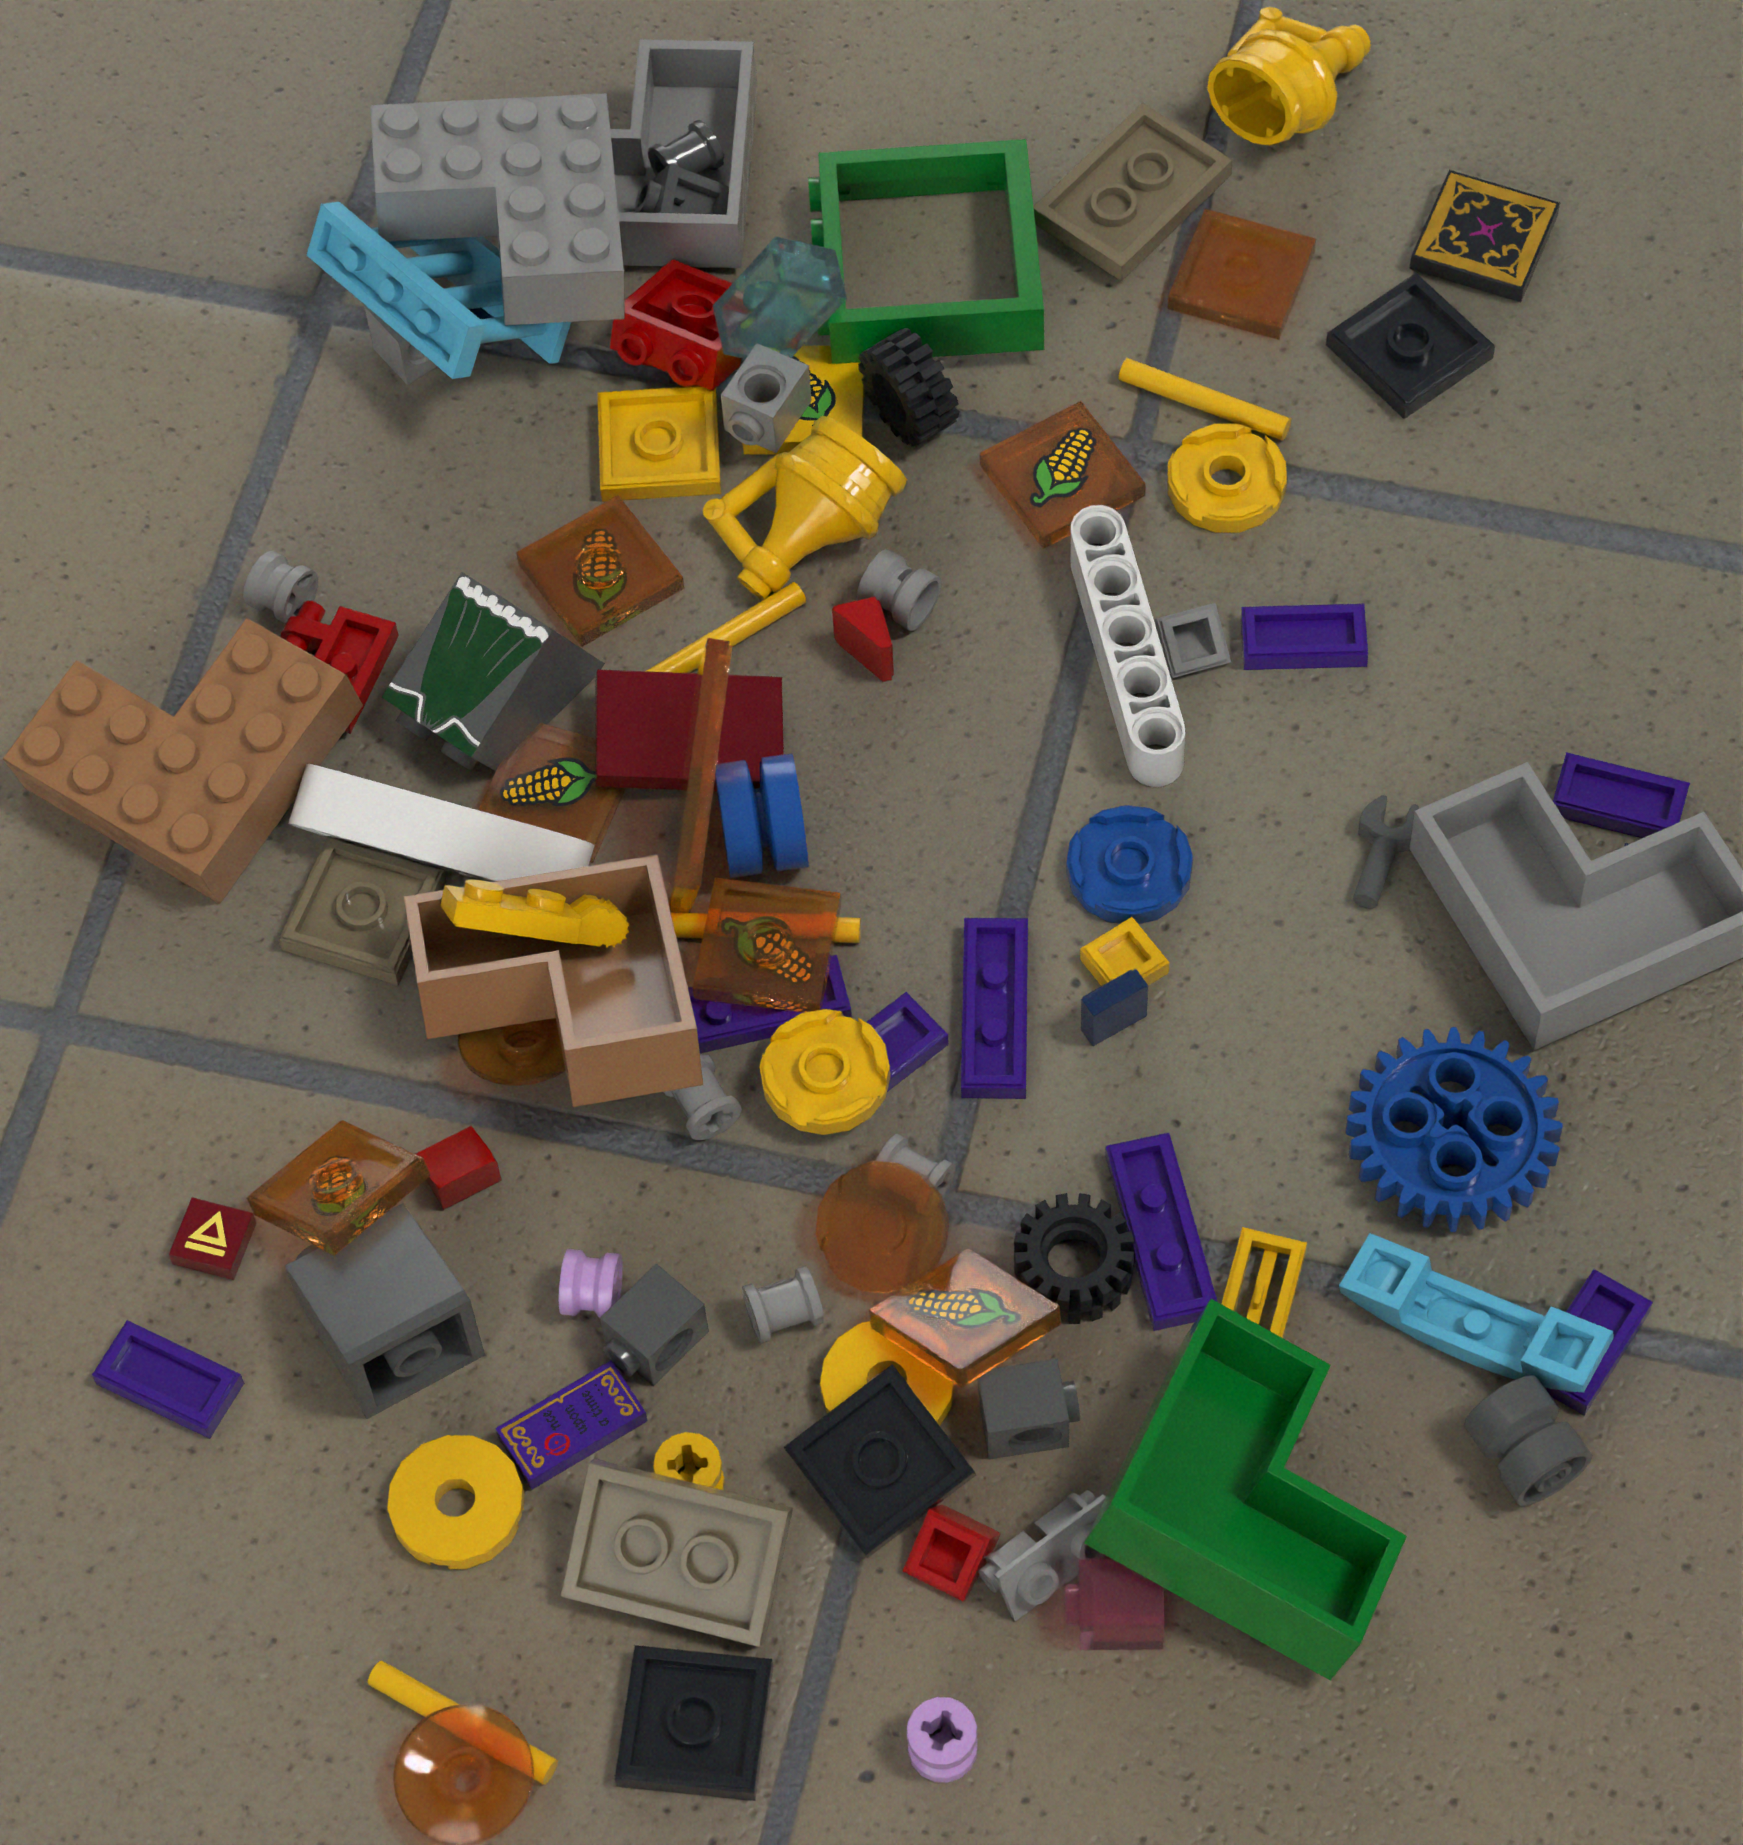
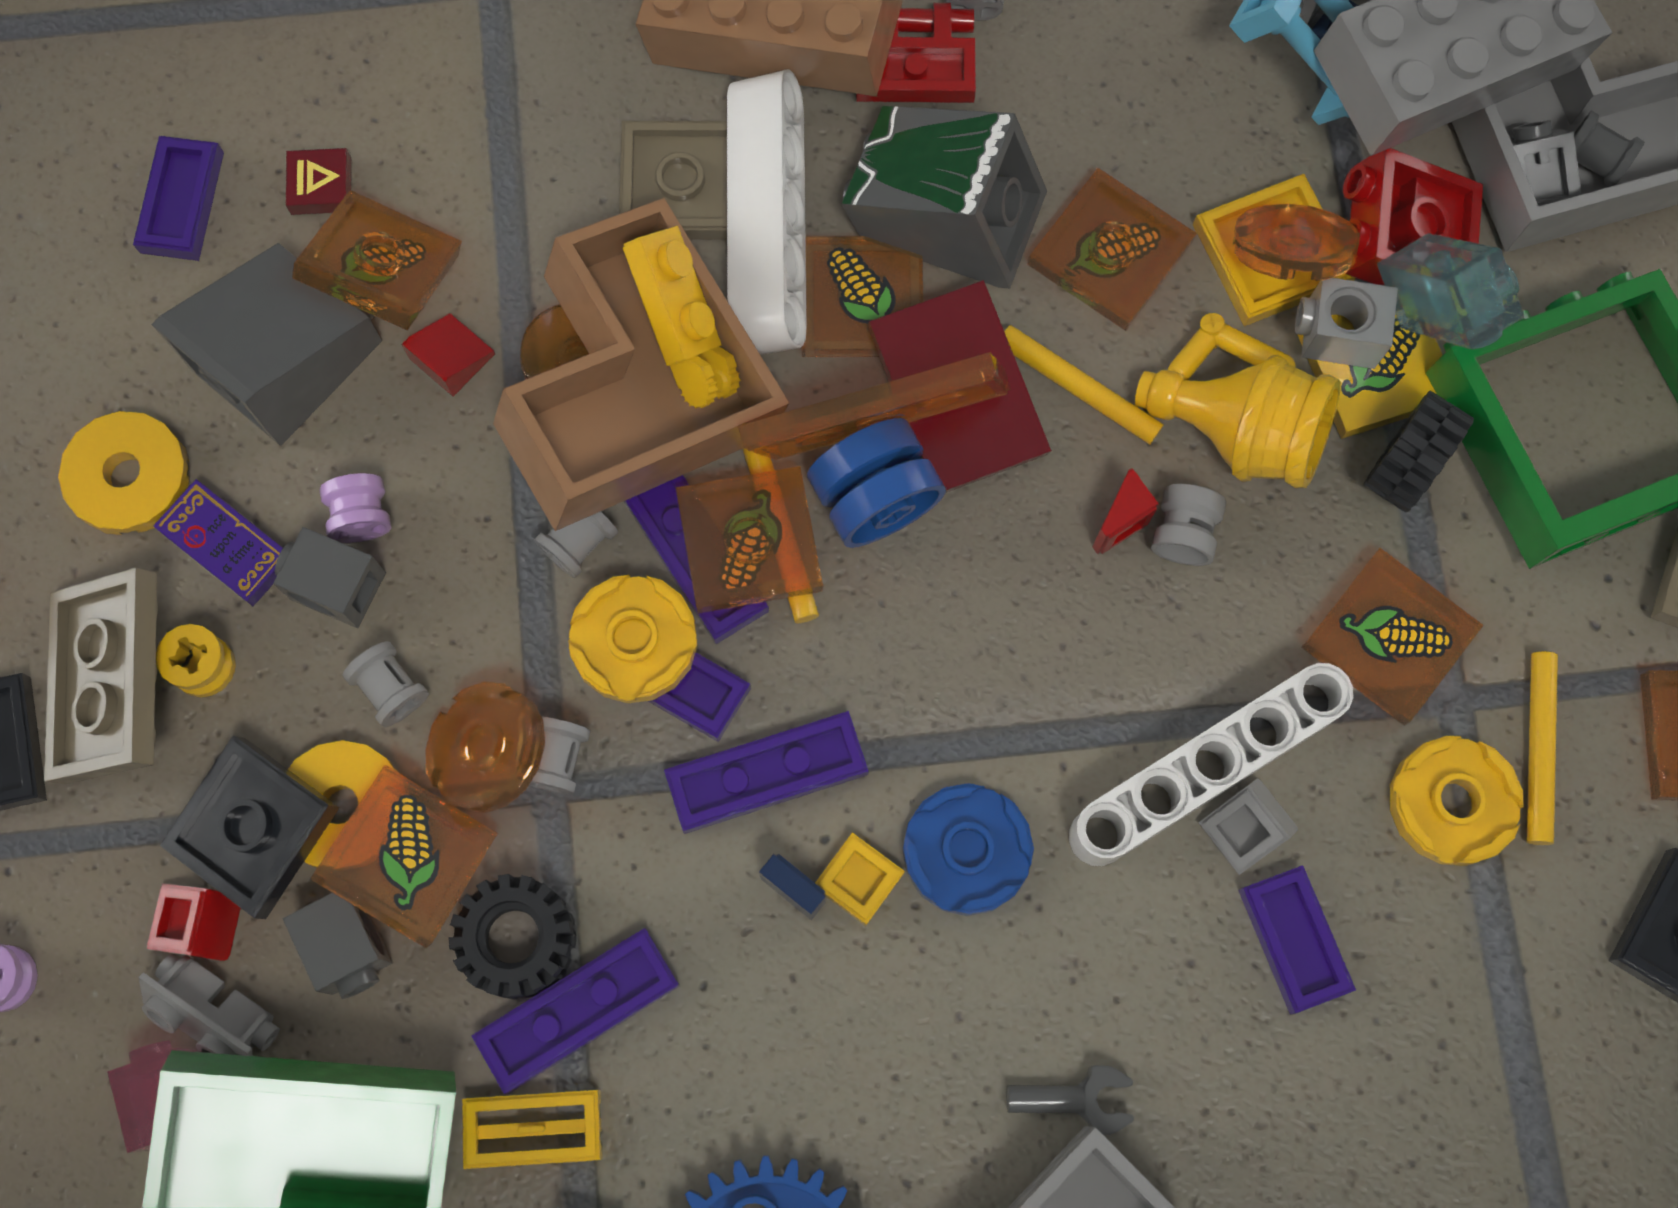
camera: 65 degrees right, 15 degrees up
(673, 408) = (1295, 238): none -> clear orange tile

